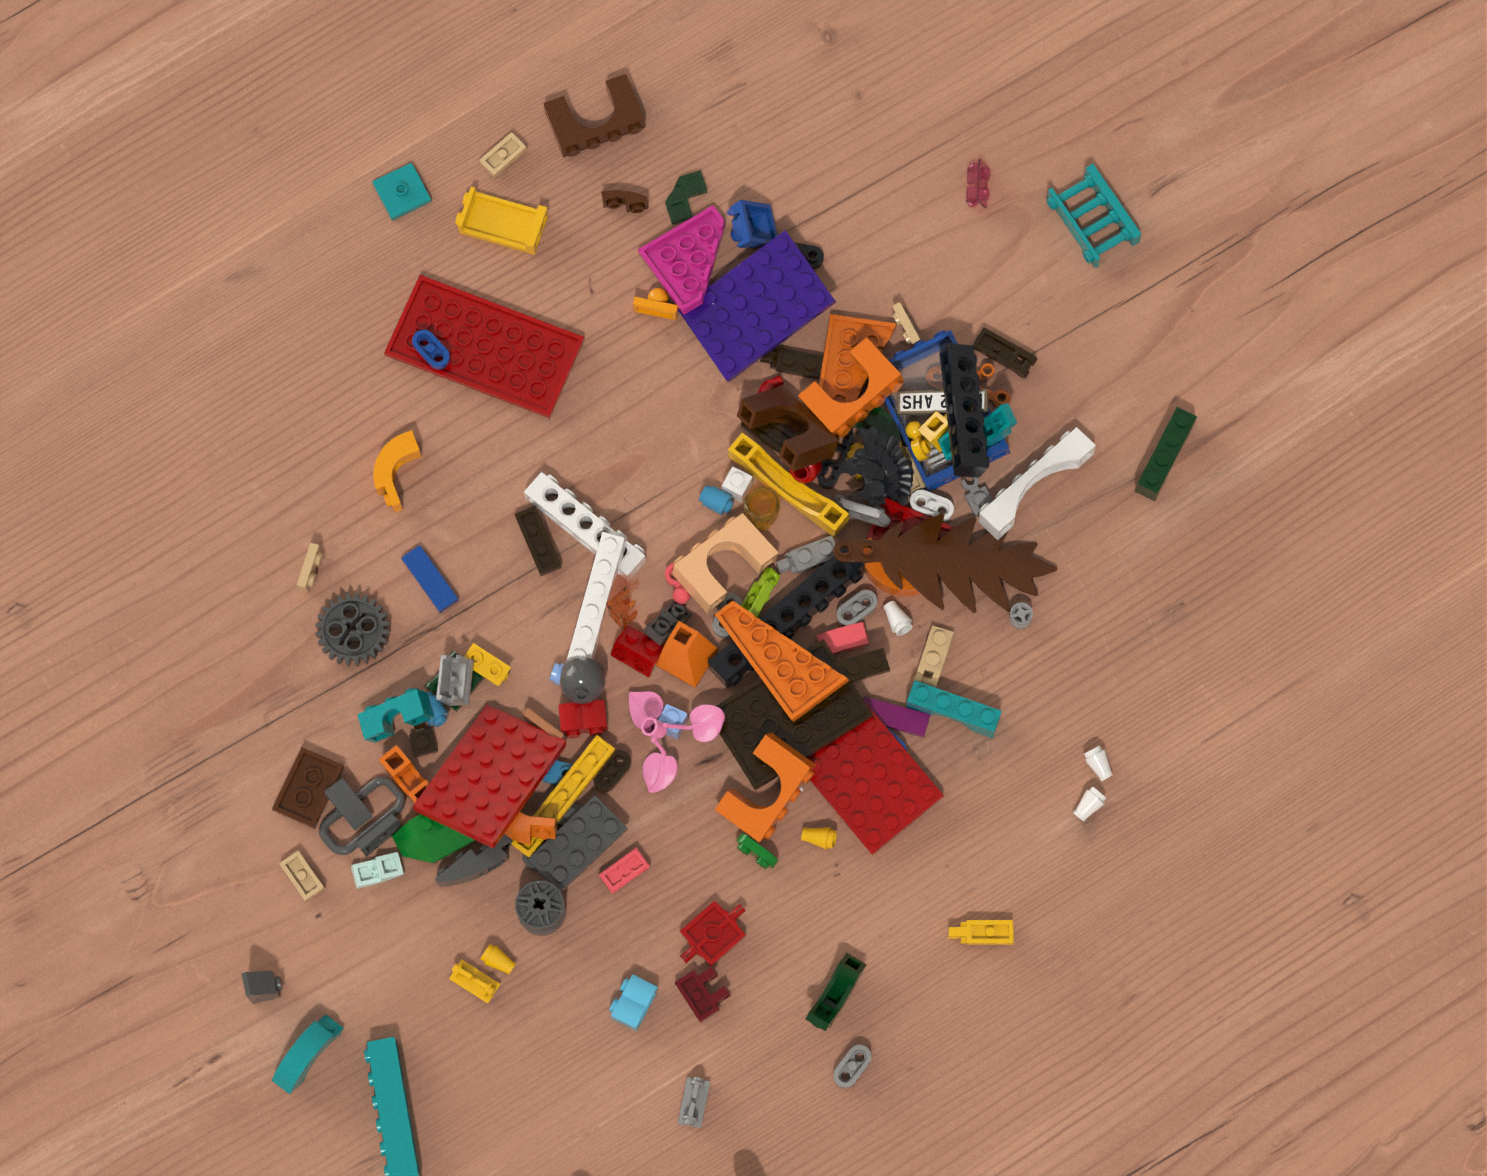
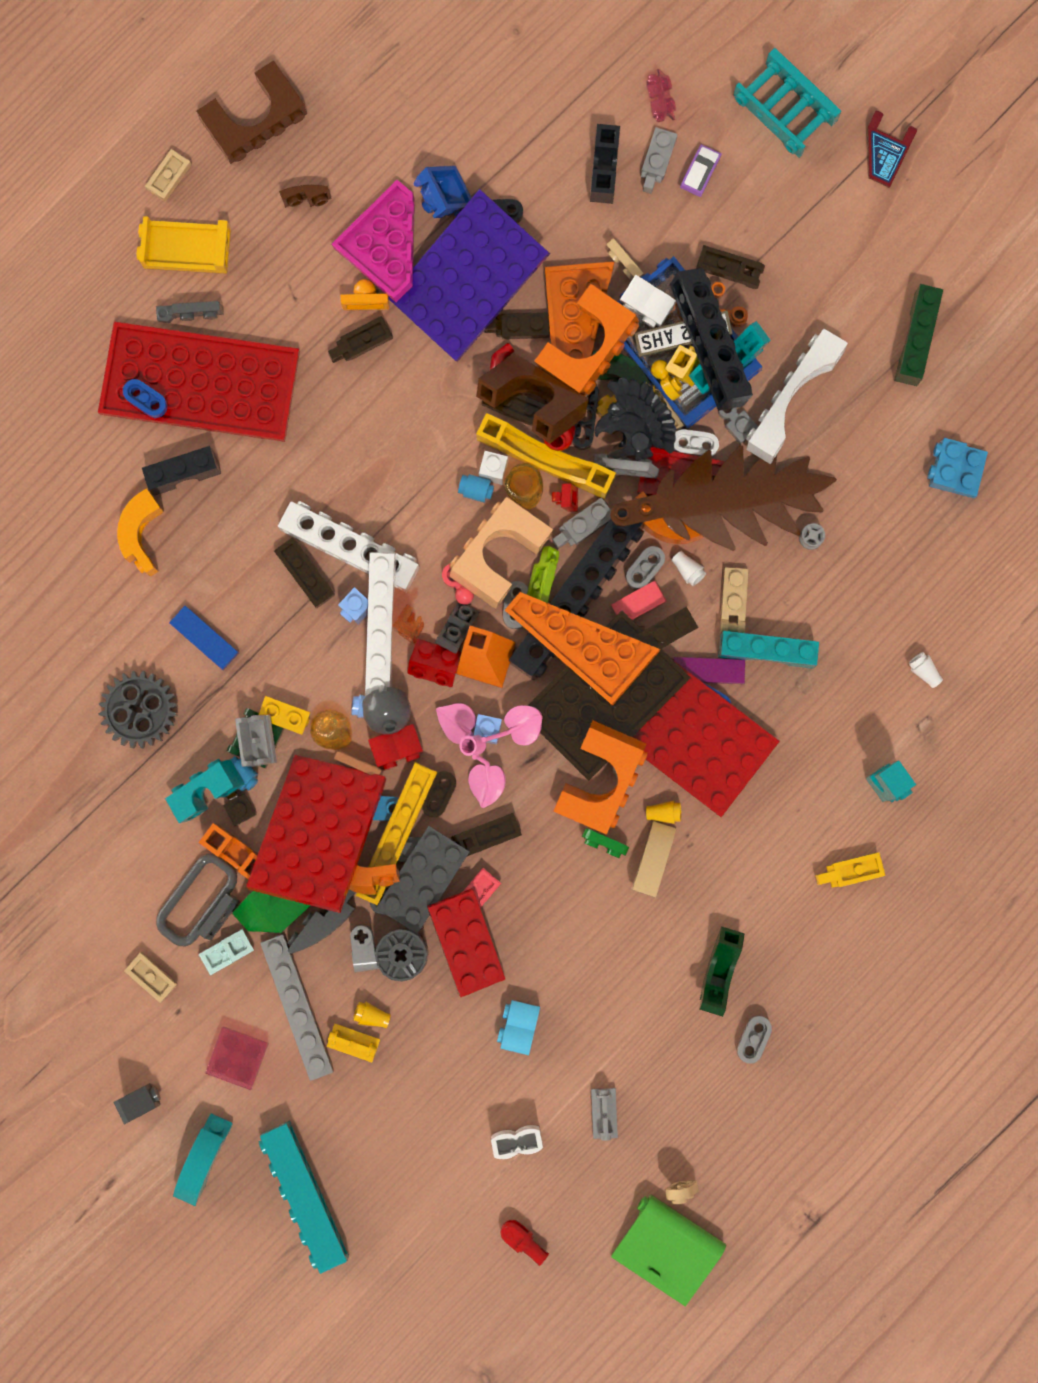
camera: 15 degrees left, 10 degrees up
(303, 791) = (134, 885): reddish brown plate -> none
(312, 560) = (78, 666): tan plate -> none
(348, 804) = (179, 892): dark grey slope -> none
(363, 969) = (237, 1058): none -> clear pink plate
(401, 191) = (73, 237): teal plate -> none
(430, 936) = (297, 1007): none -> light grey plate
(462, 419) = (168, 473): none -> black arch
(490, 280) = (188, 311): none -> dark grey hinge
(505, 898) = (363, 952): none -> light grey piece
(526, 689) = (331, 730): none -> clear yellow hair
(576, 581) = (354, 606): none -> light blue brick
(596, 1105) = (510, 1143): none -> white brick
(603, 911) = (466, 942): none -> red plate
(643, 342) = (361, 340): none -> dark brown hinge
(650, 818) = (489, 834): none -> dark brown plate
(685, 188) = (364, 167): clear green tile -> none
(697, 995) = (582, 1004): dark red plate -> none
(713, 933) = (581, 937): red plate -> none
(798, 878) = (654, 859): none -> tan slope
(799, 528) = (567, 498): none -> red tile
(909, 234) = (605, 163): none -> black arch
(915, 365) = (647, 301): none -> white brick
(961, 239) = (657, 158): none -> light grey hinge
(998, 259) = (700, 170): none -> slope
(1037, 853) = (891, 782): none -> teal arch
(1090, 802) = (926, 714): white cone -> none
(1174, 584) = (957, 468): none -> dark azure plate
(1177, 281) = (885, 151): none -> flag

